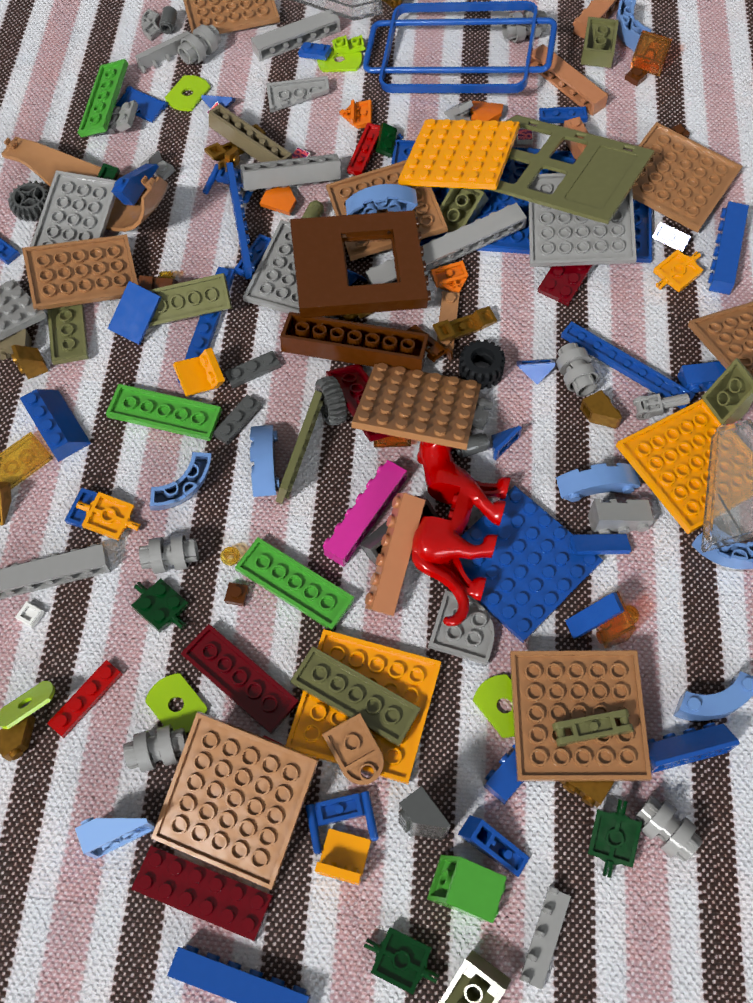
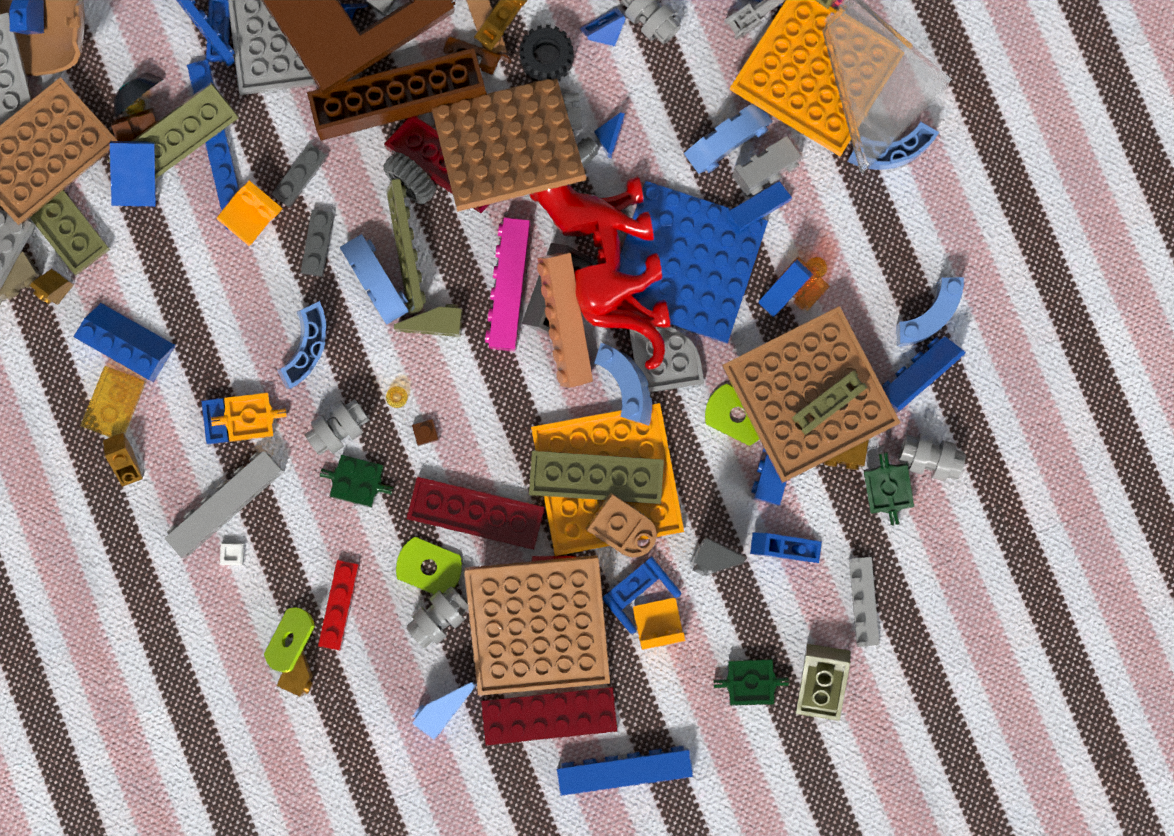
camera: 25 degrees left, 20 degrees up
(164, 412) = (234, 273): bright green plate -> none
(172, 261) = (130, 93): none -> black piece
(290, 512) = (439, 321): none -> olive slope
(295, 584) = (477, 394): bright green plate -> none
(425, 632) = (632, 383): none -> medium blue brick
(467, 888) = (779, 595): bright green slope -> none
(600, 410) = (695, 50): pearl gold slope -> none

